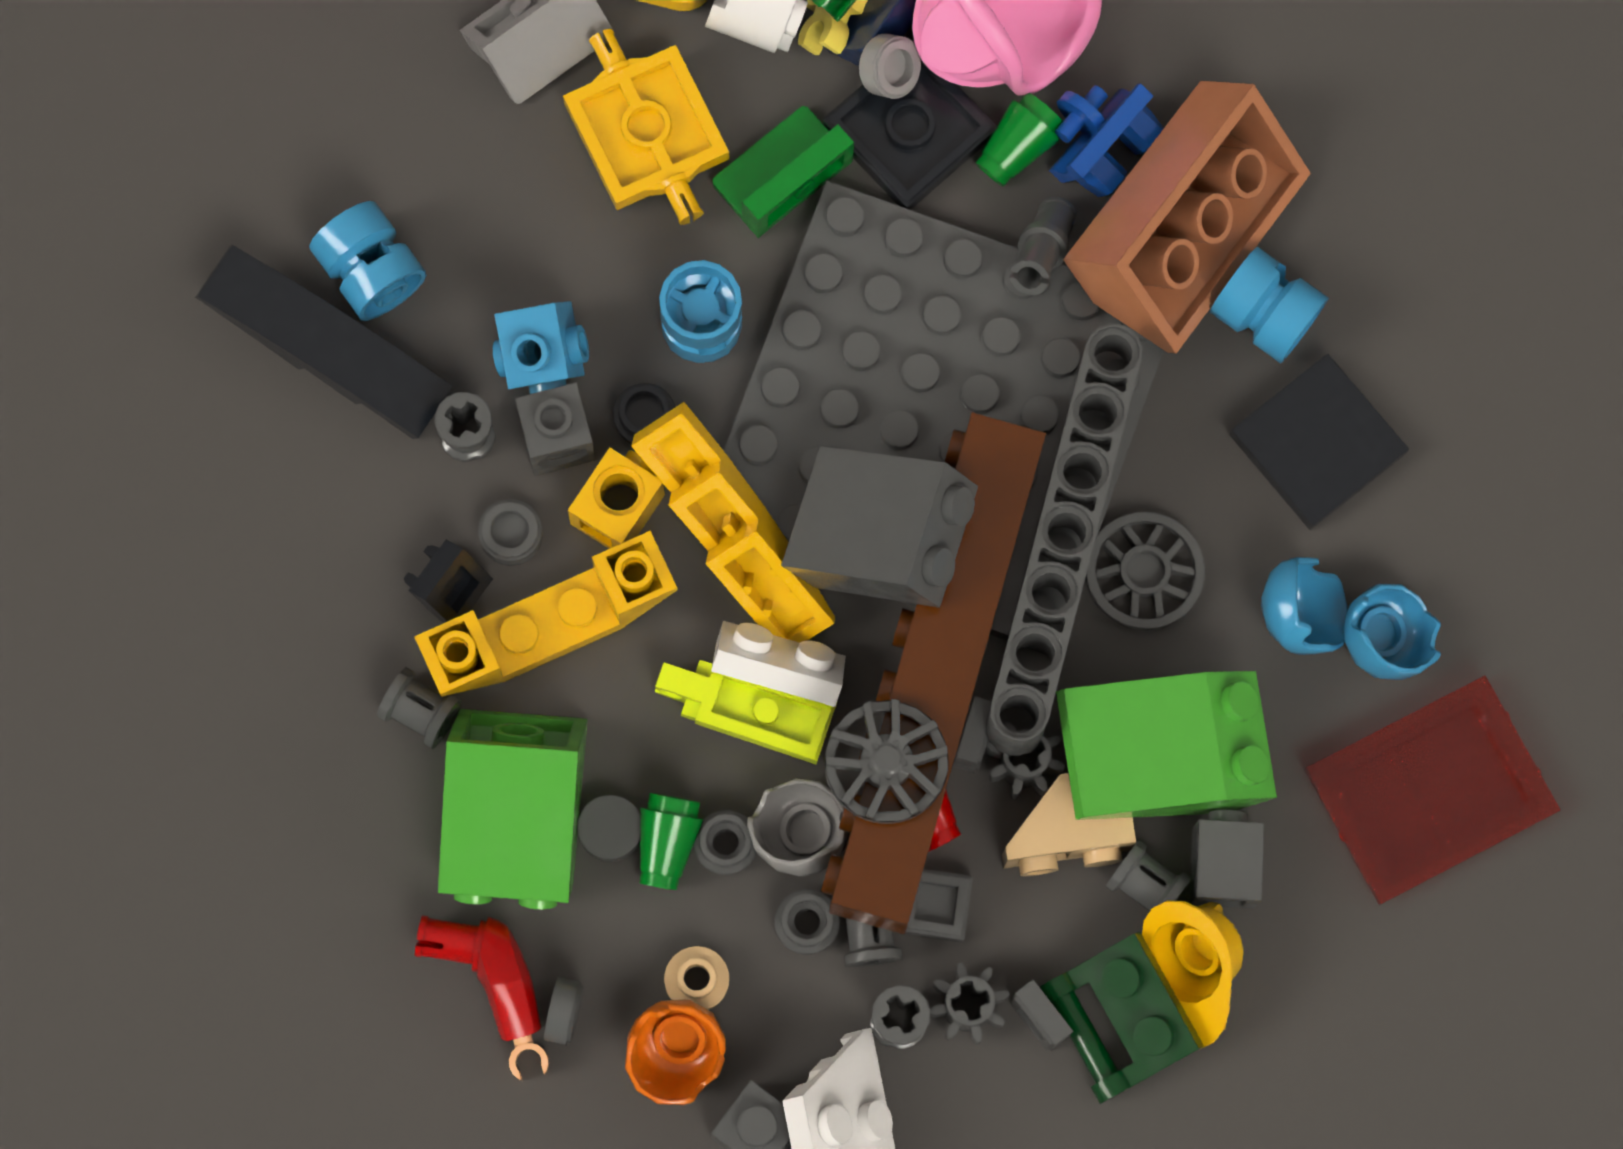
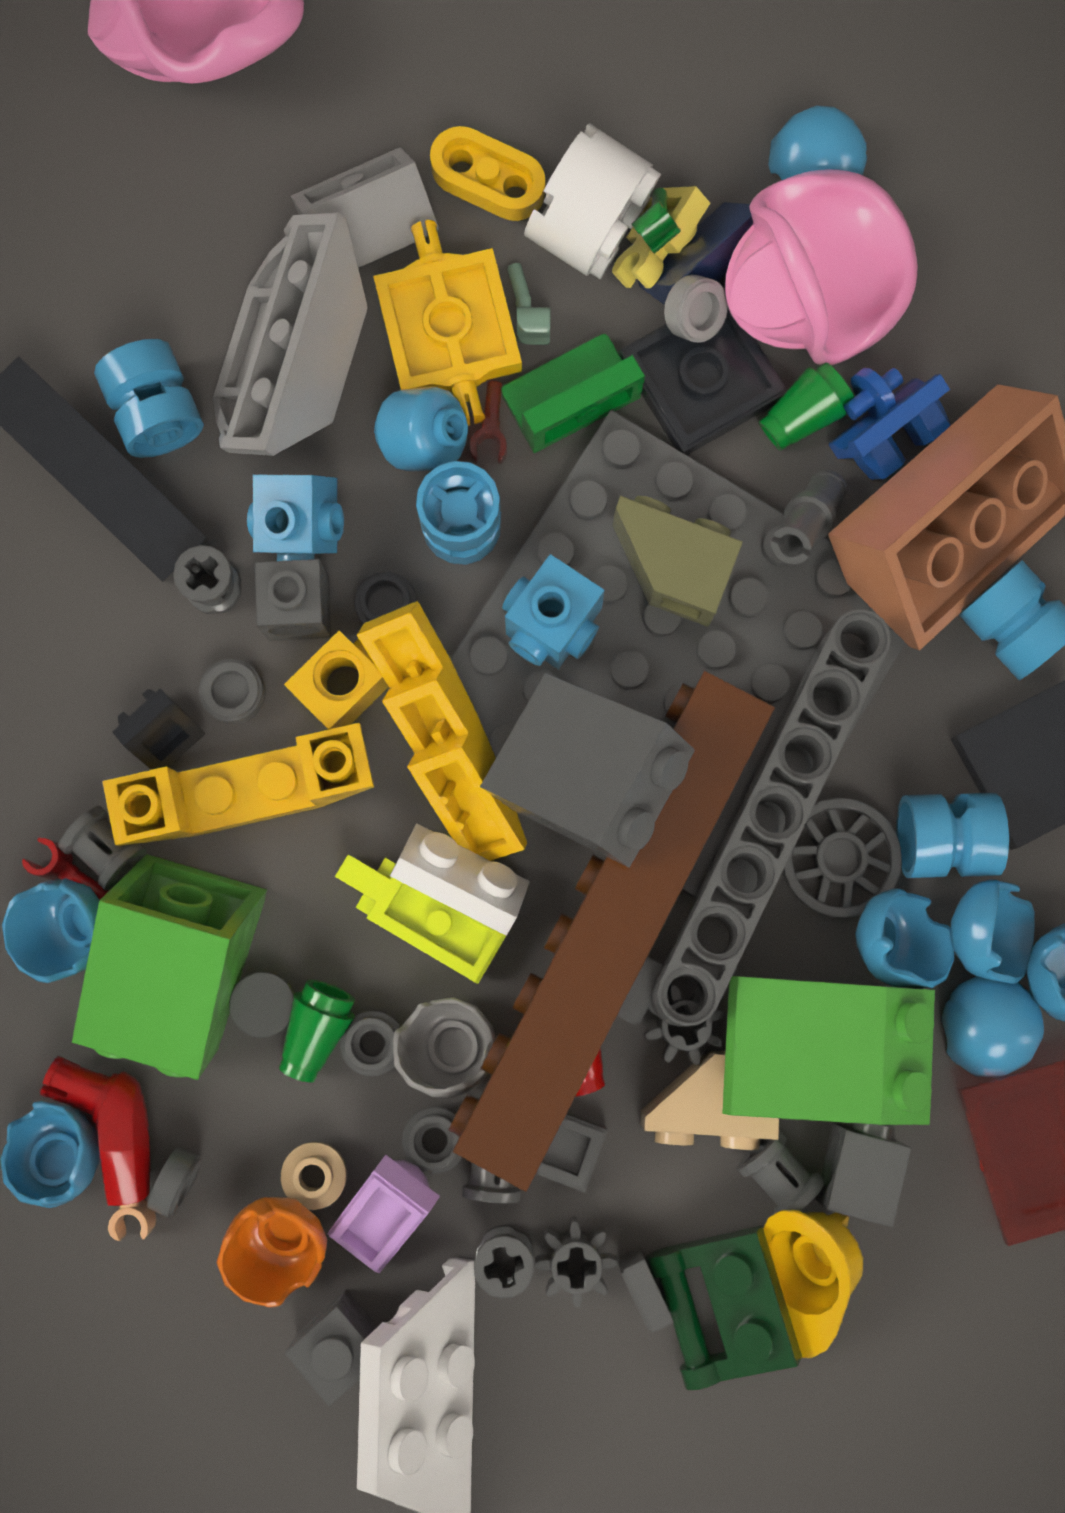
camera: 15 degrees right, 5 degrees up
(387, 741) = (61, 867): none -> red hand
(394, 792) = (51, 929): none -> dark azure hair
(437, 1007) = (50, 1155): none -> dark azure hair
(495, 175) = (292, 339): none -> light grey wedge
(644, 237) = (421, 428): none -> dark azure head
(710, 219) = (491, 423): none -> clear red hand
(729, 110) = (532, 322): none -> sand green hand
(773, 993) = (384, 1212): none -> lavender tile
(815, 389) = (552, 614): none -> dark azure brick
(886, 761) = (540, 1018): dark grey wheel -> none
(921, 314) = (674, 560): none -> olive slope
(1217, 634) = (903, 942): none -> dark azure hair
(1245, 524) = (961, 835): none -> dark azure wheel
(1324, 702) = (992, 1027): none -> dark azure hair

